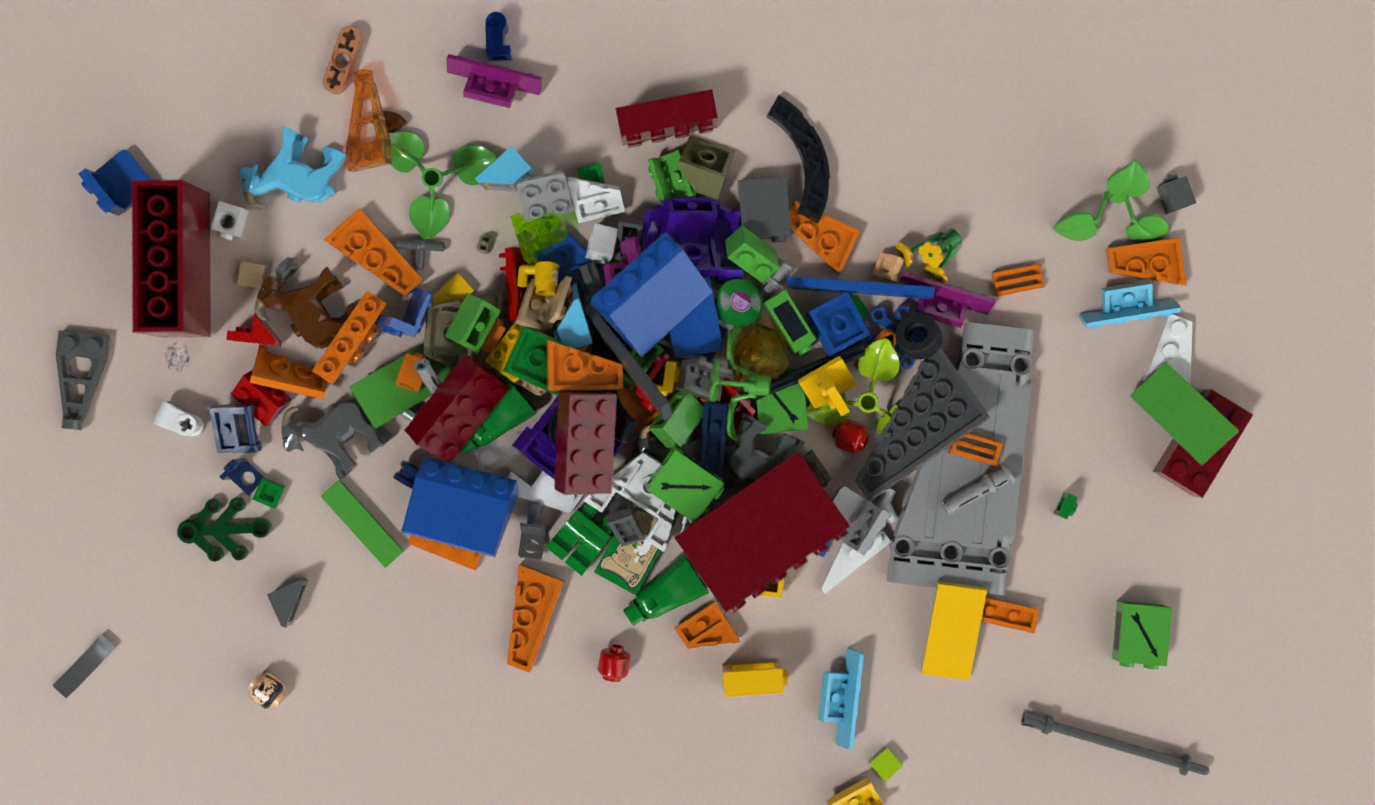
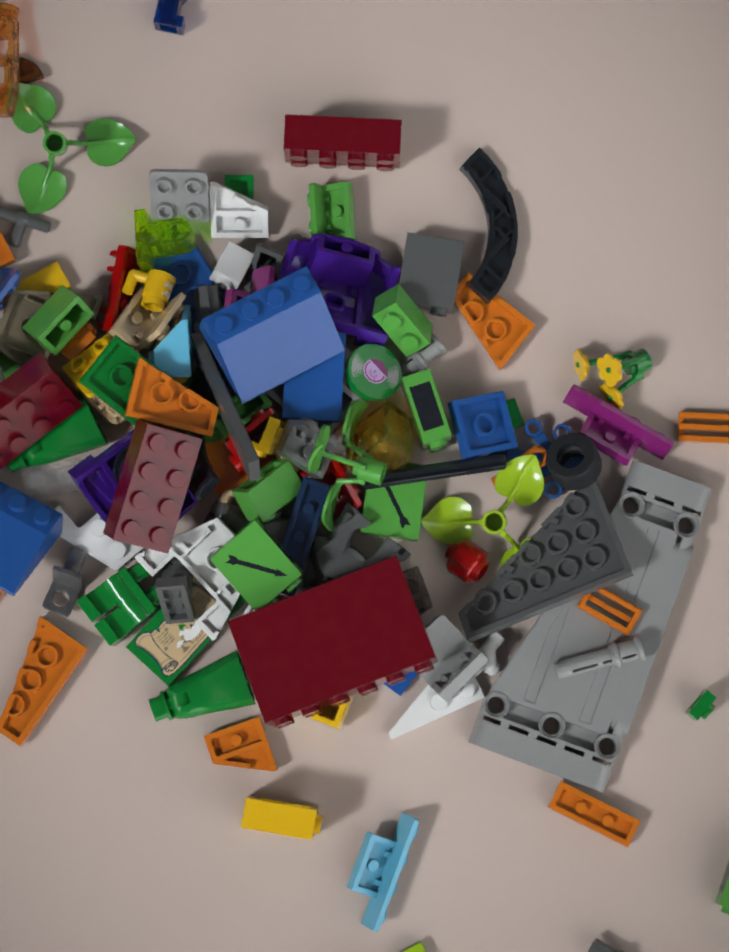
camera: 20 degrees right, 5 degrees down
(484, 244) = (97, 236): dark tan rock -> none
(491, 82) = (153, 54): magenta bracket -> none
(505, 172) = (139, 157): medium azure slope -> none
(614, 663) = (122, 759): red head -> none
(705, 165) = (374, 207): olive slope -> none
(828, 384) = (454, 491): yellow bracket -> none
(858, 287) = (519, 390): blue tile -> none
(888, 267) = (558, 375): light nougat plate -> none
(953, 630) = (532, 820): yellow tile -> none

